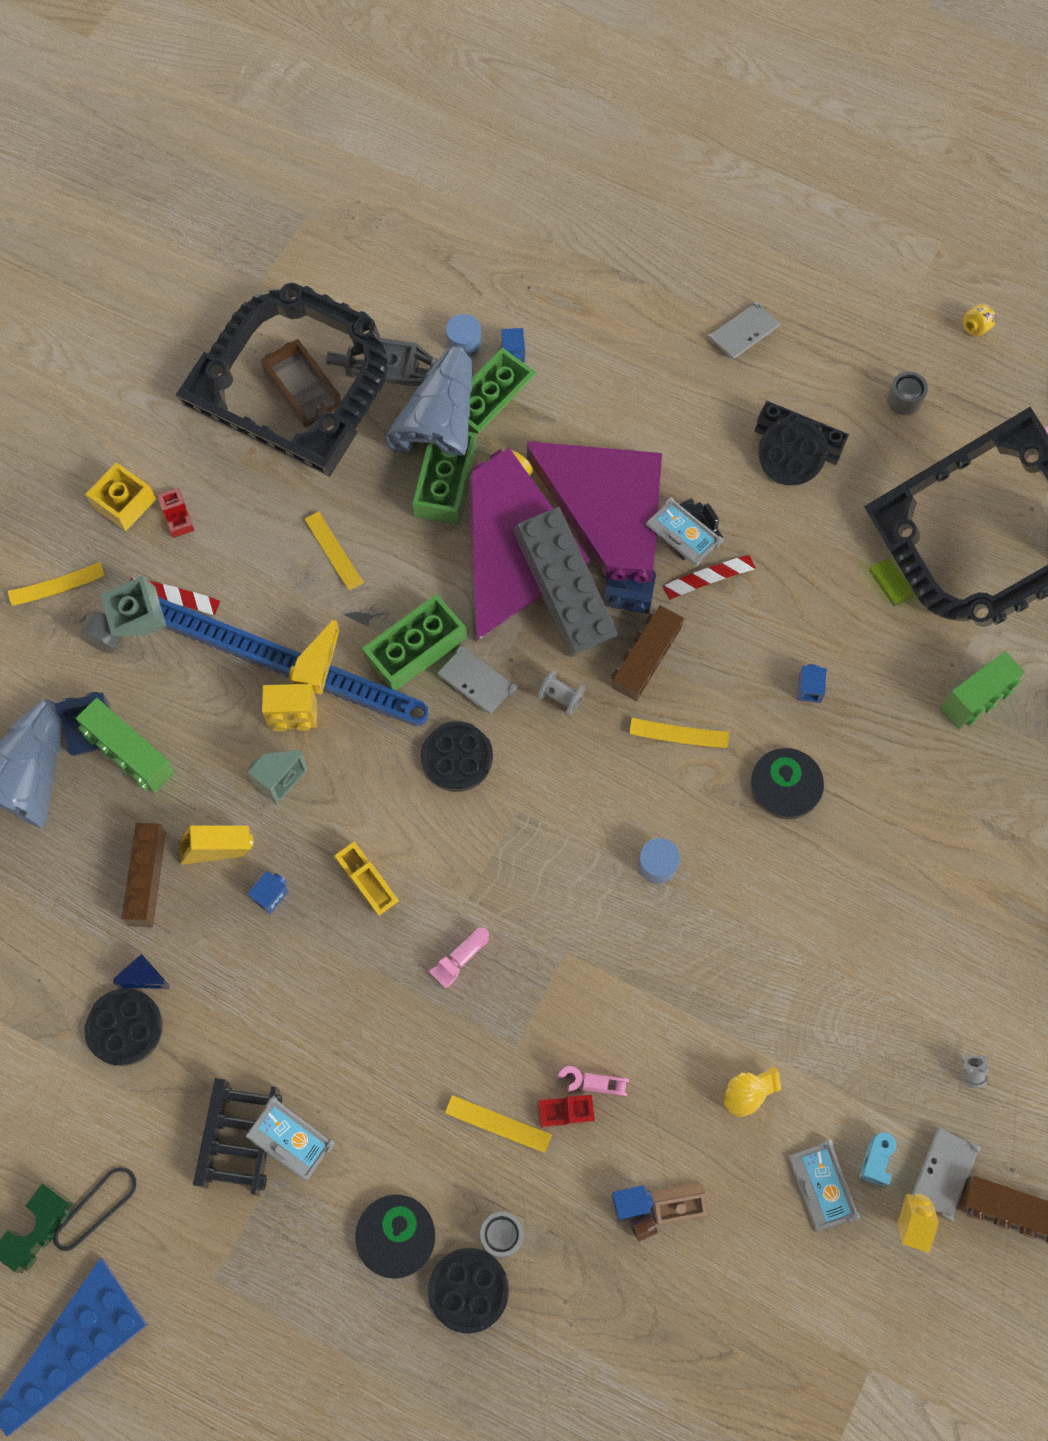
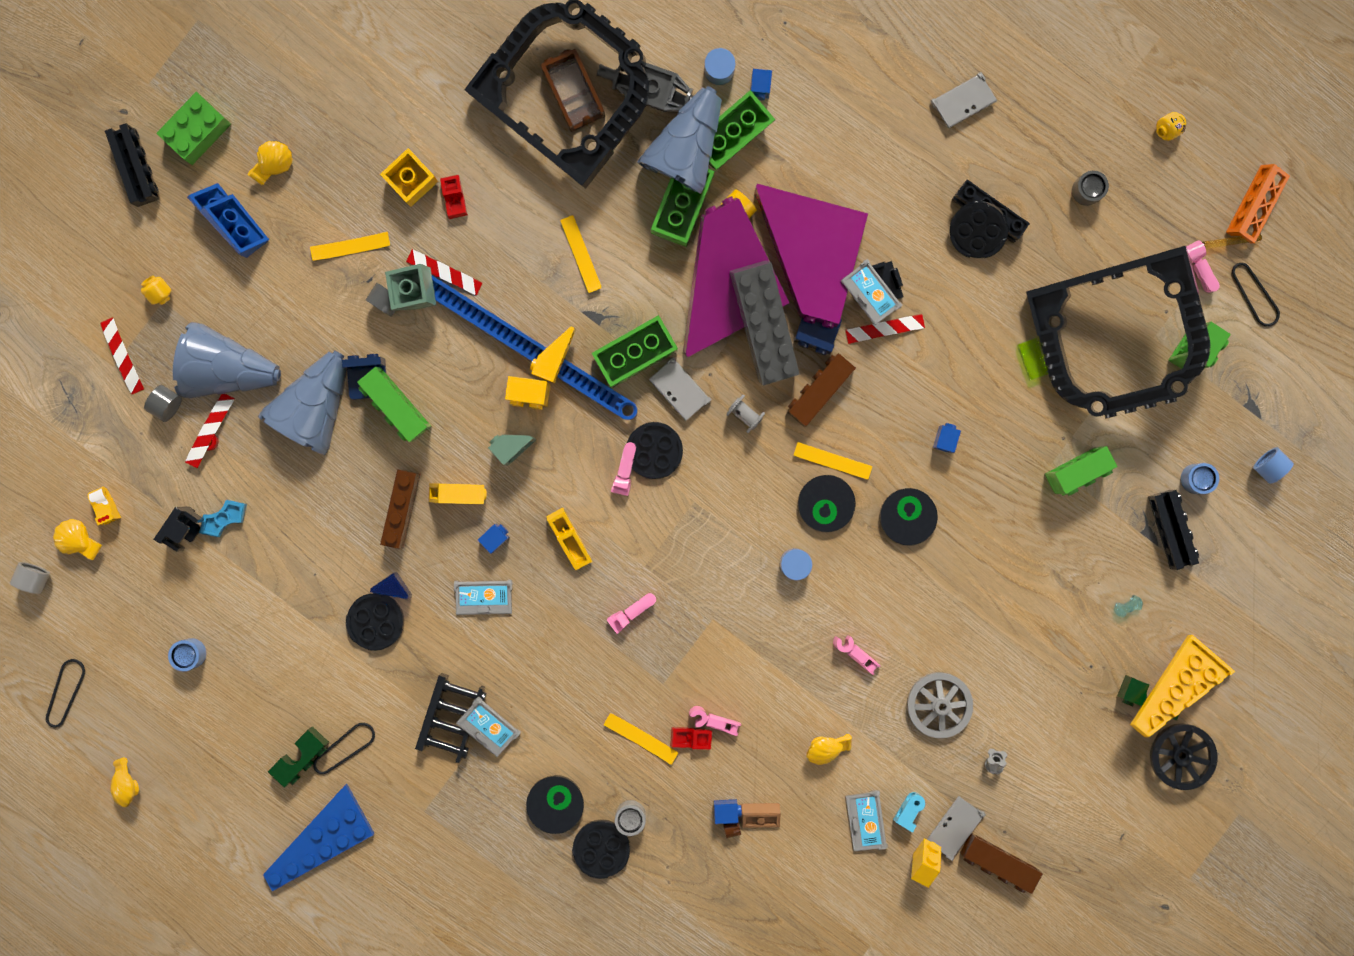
camera: 10 degrees right, 20 degrees up
(262, 971) = (479, 596): none -> door
(423, 799) = (622, 482): none -> bright pink piece
(682, 784) = (826, 503): none -> black tile
(760, 962) = (856, 653): none -> bright pink piece
(880, 1016) = (936, 701): none -> light grey wheel

